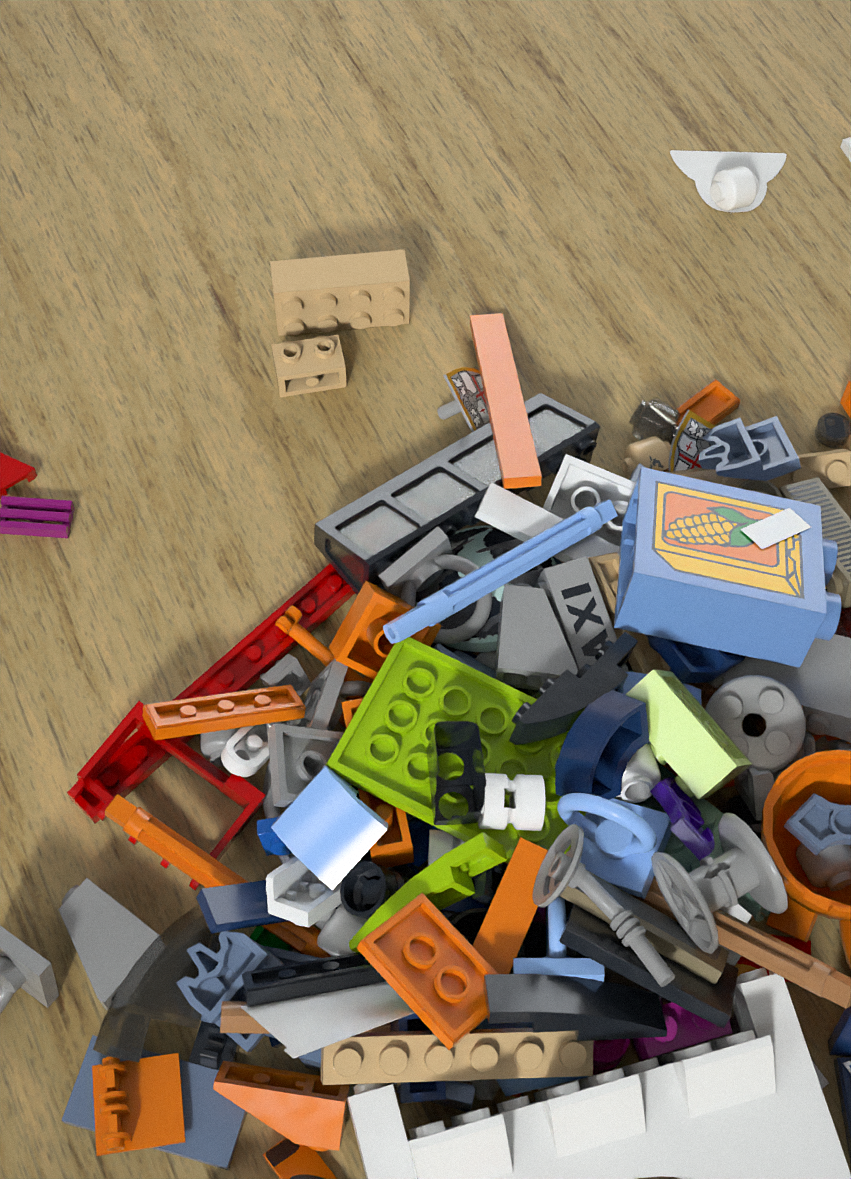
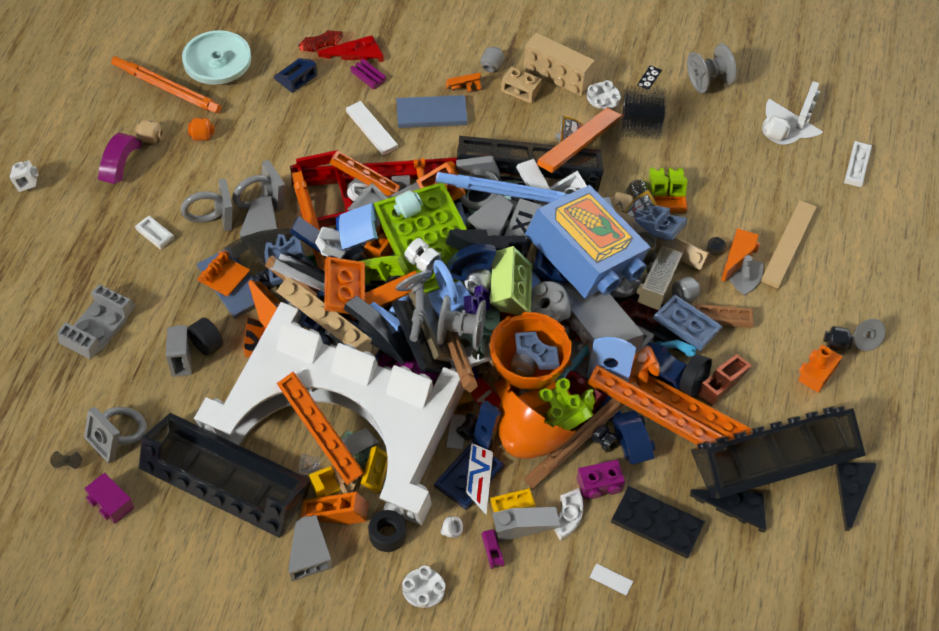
camera: 40 degrees right, 5 degrees down
(70, 859) = (270, 184): none -> light grey tile
(133, 611) = (371, 128): none -> white tile
(204, 511) = (431, 111): none -> sand blue tile
(219, 417) = (456, 82): none -> orange plate
(222, 353) = (492, 59): none -> light grey head
(396, 722) = (408, 204): none -> light aqua head
(445, 299) = (603, 95): none -> white dish
(464, 741) = (421, 222): black piece -> none
(477, 227) = (649, 77): none -> black sticker
(549, 287) = (643, 112): none -> black piece
(576, 139) = (721, 65): none -> light grey piece
(676, 375) = (674, 183): none -> lime legs
(737, 125) = (809, 105): none -> white plate
(775, 528) = (618, 238): white sticker -> none
(813, 1021) = (468, 427): none -> black bush

